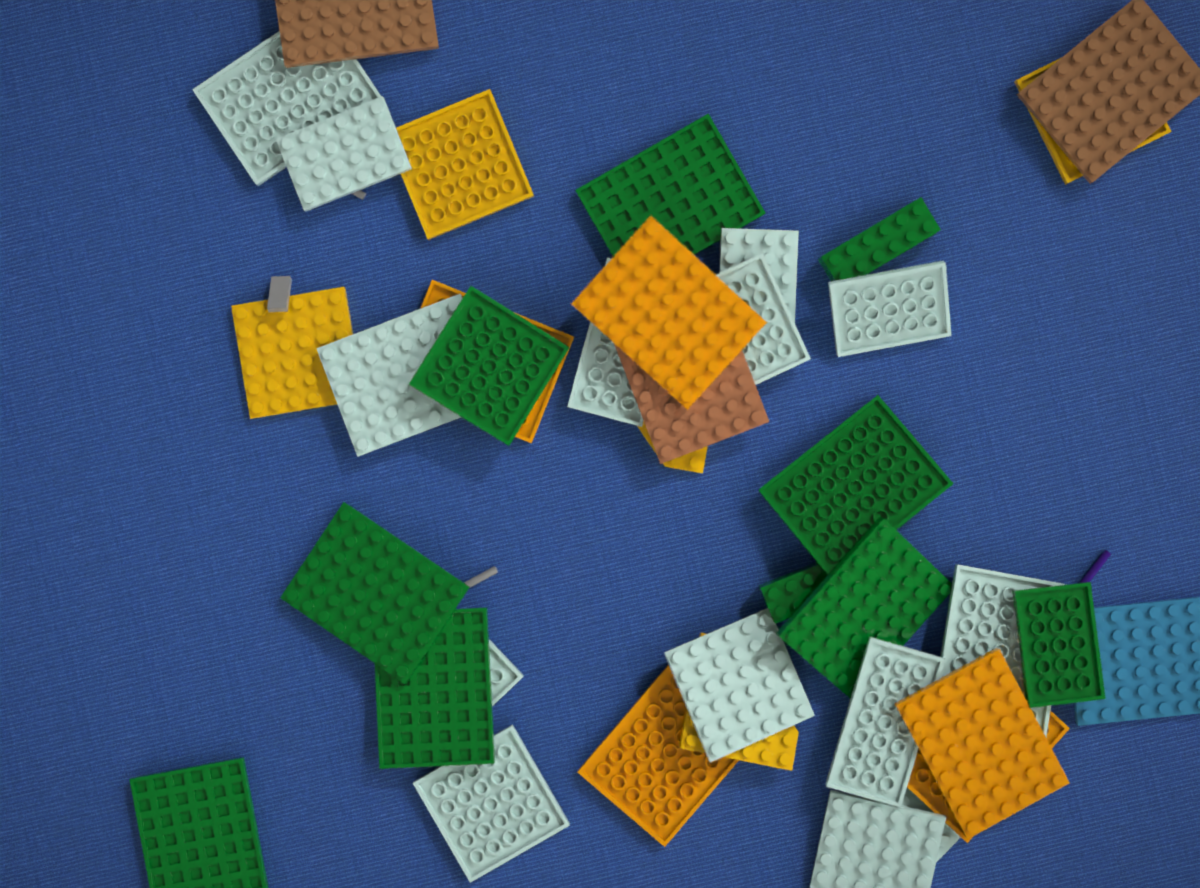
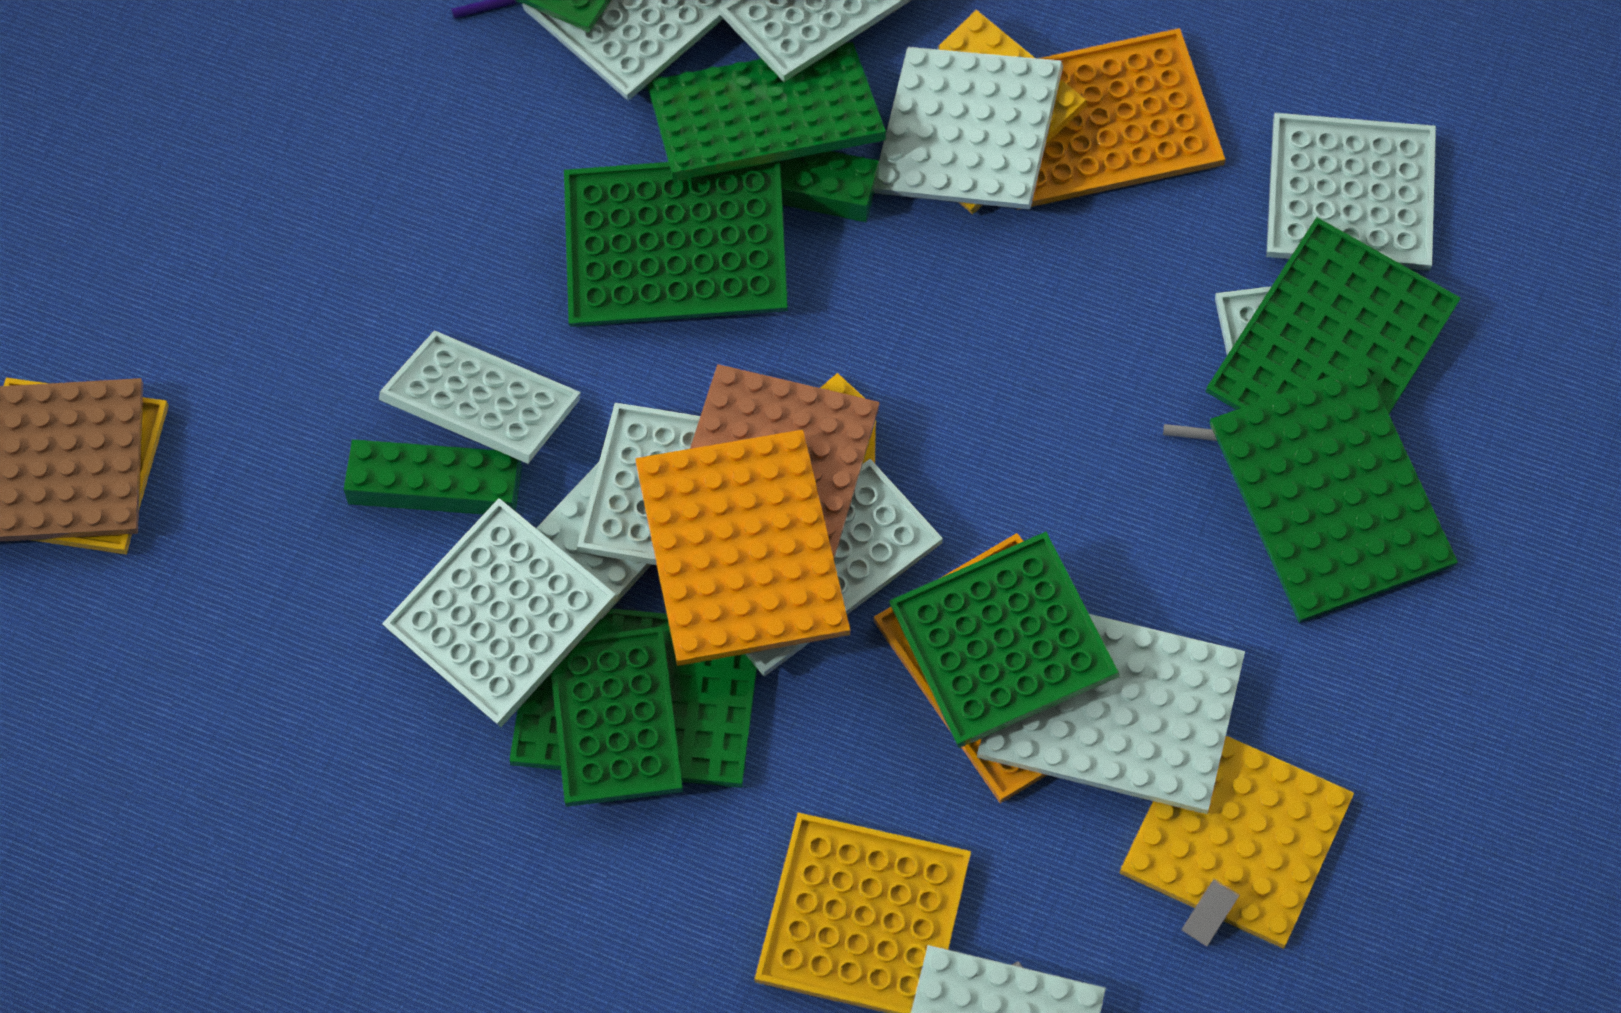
camera: 140 degrees left, 25 degrees down
(669, 175) = (616, 719): none -> green plate
(776, 188) = (500, 612): none -> light aqua plate

